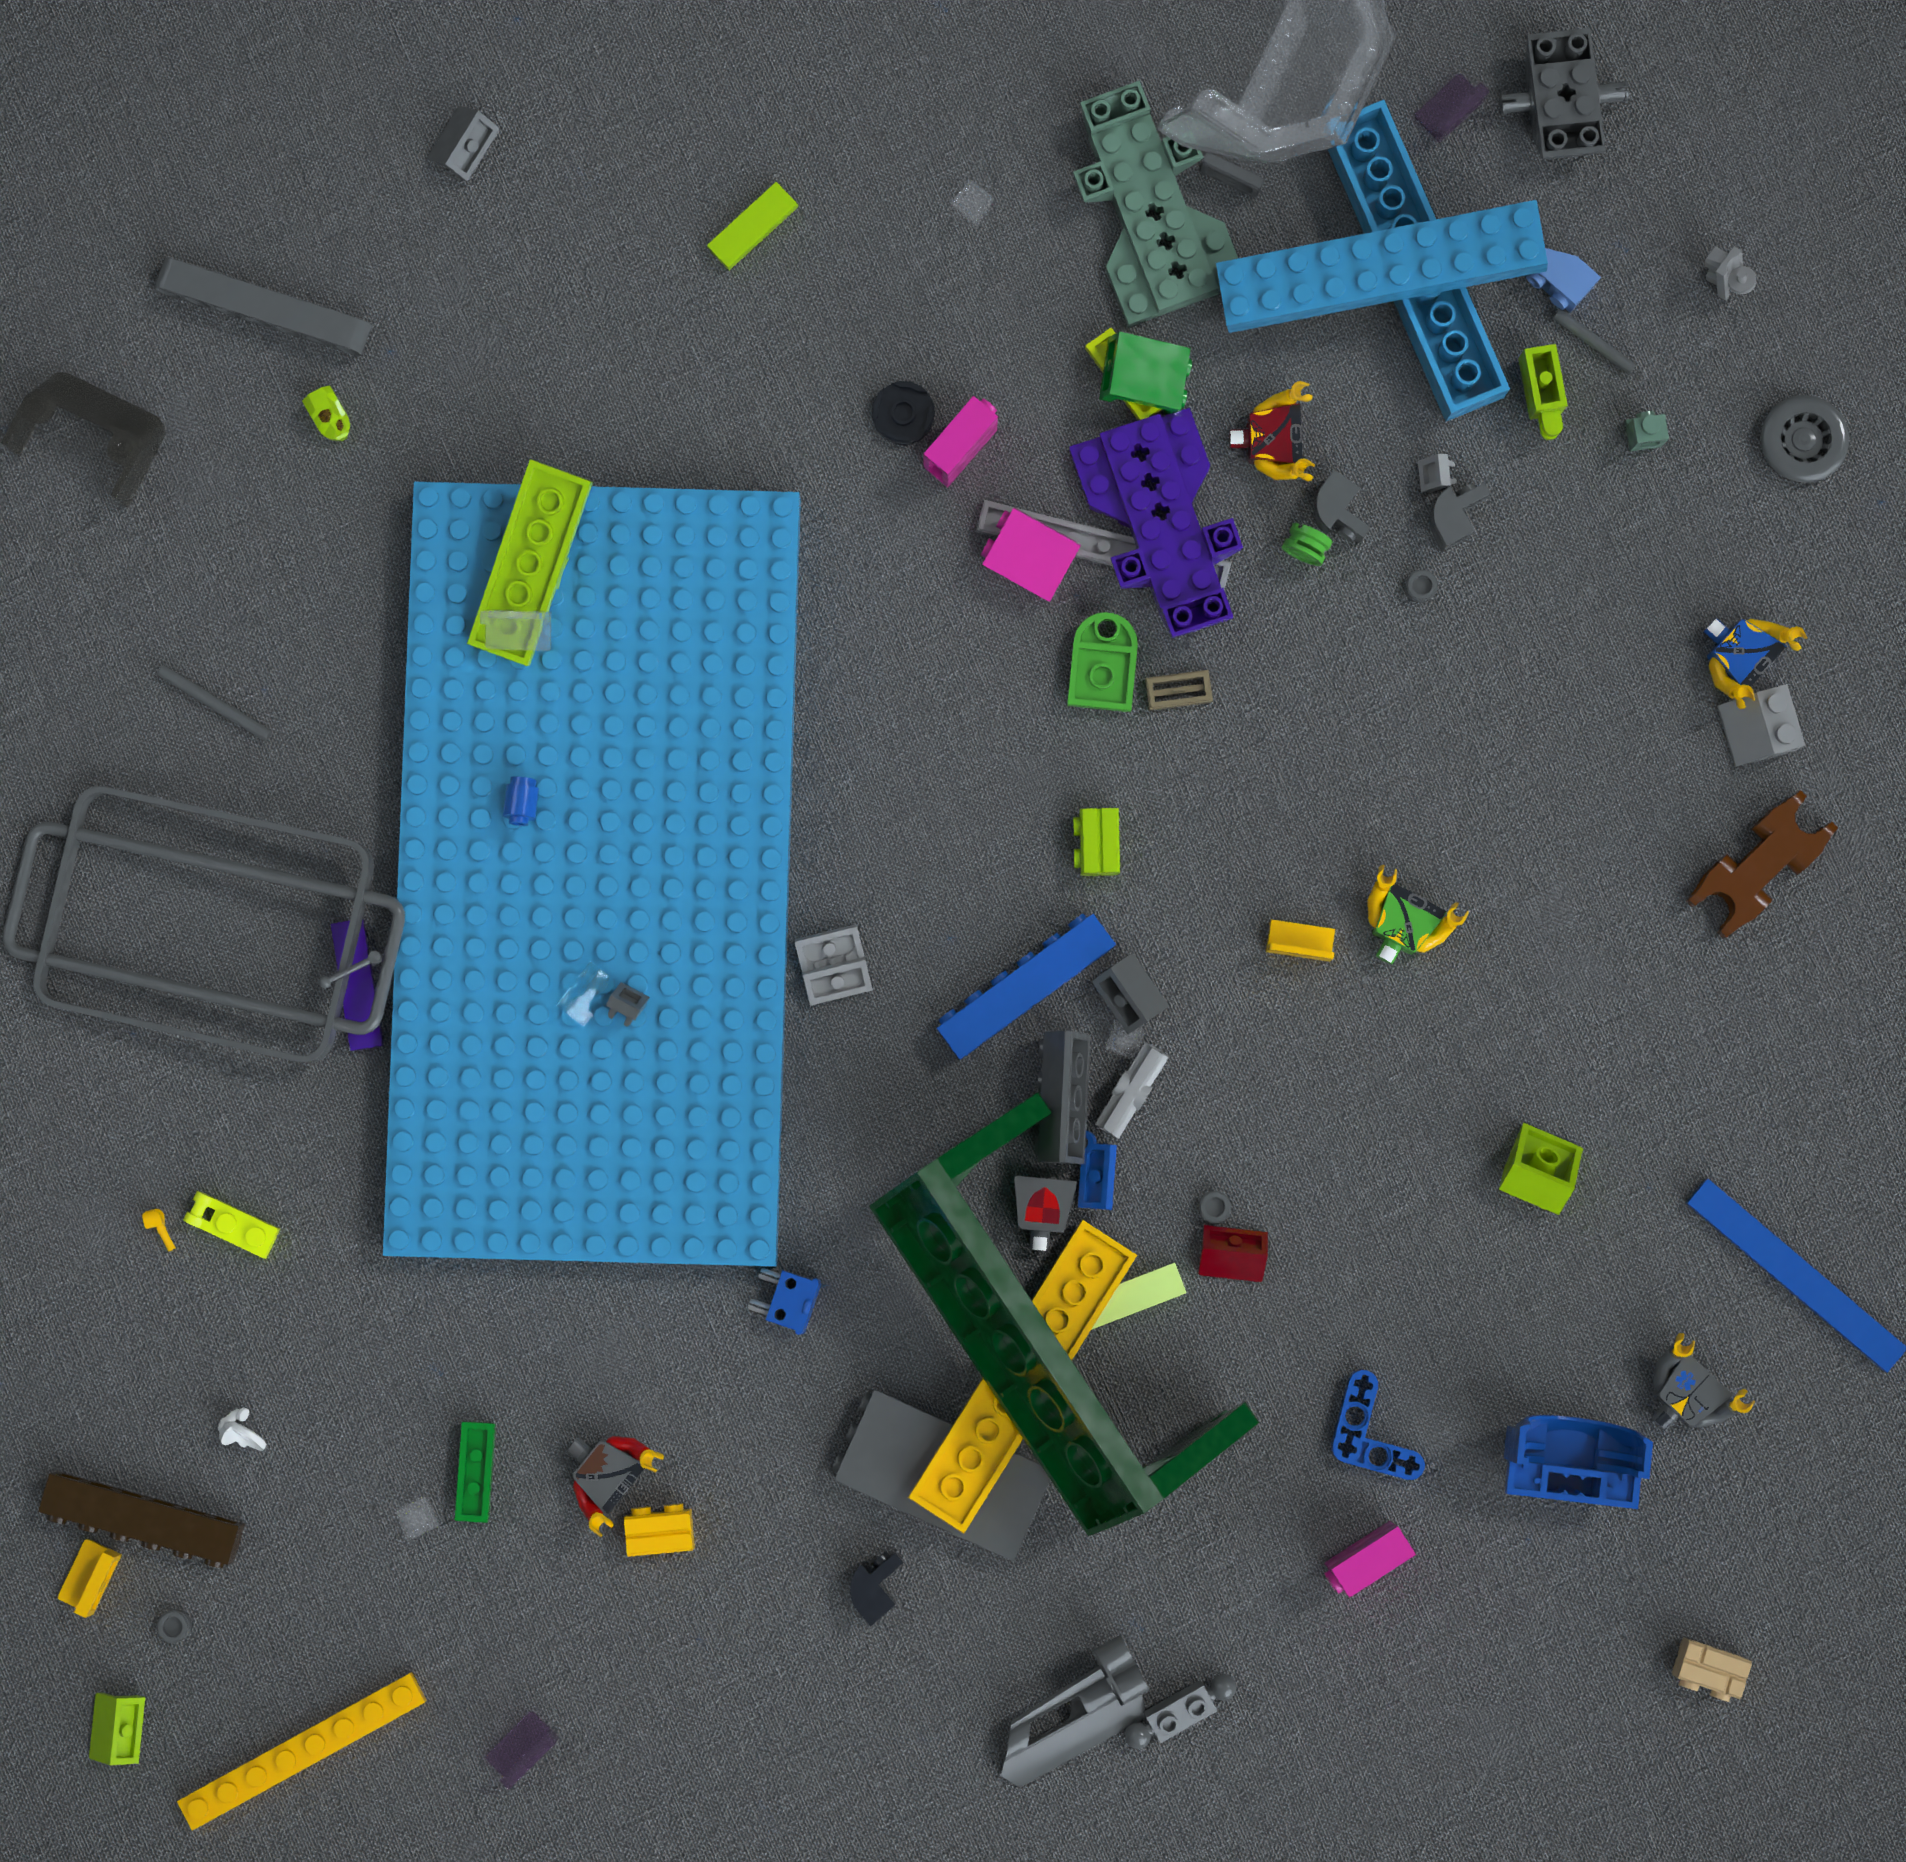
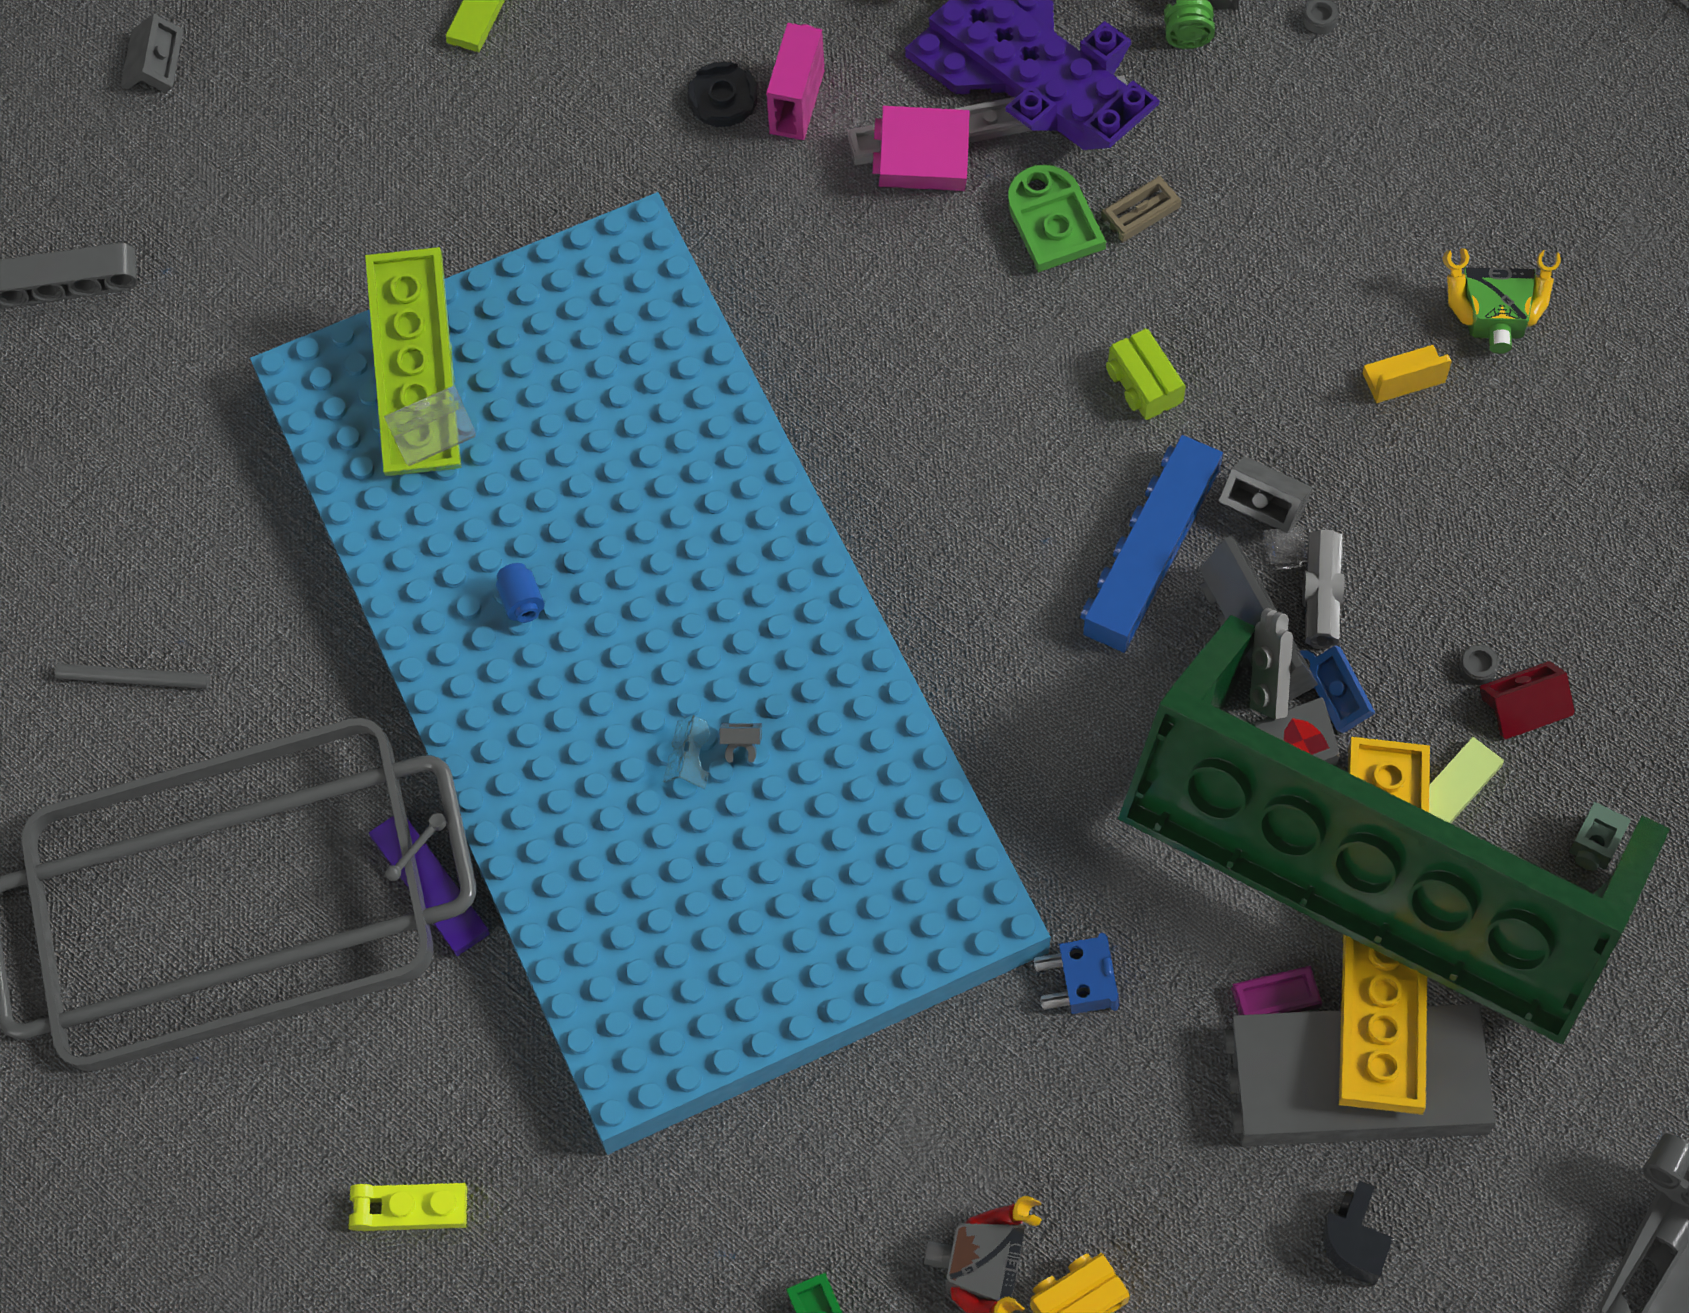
camera: 20 degrees left, 20 degrees down
(156, 1218) = (315, 1243): yellow hand -> none
(328, 413) = (126, 348): lime rock -> none
(833, 964) = (938, 619): light grey slope -> none
(920, 1383) = (1278, 993): none -> magenta tile
(1045, 1147) = (1271, 665): none -> light grey hinge
(1229, 1389) = (1600, 826): none -> sand green brick

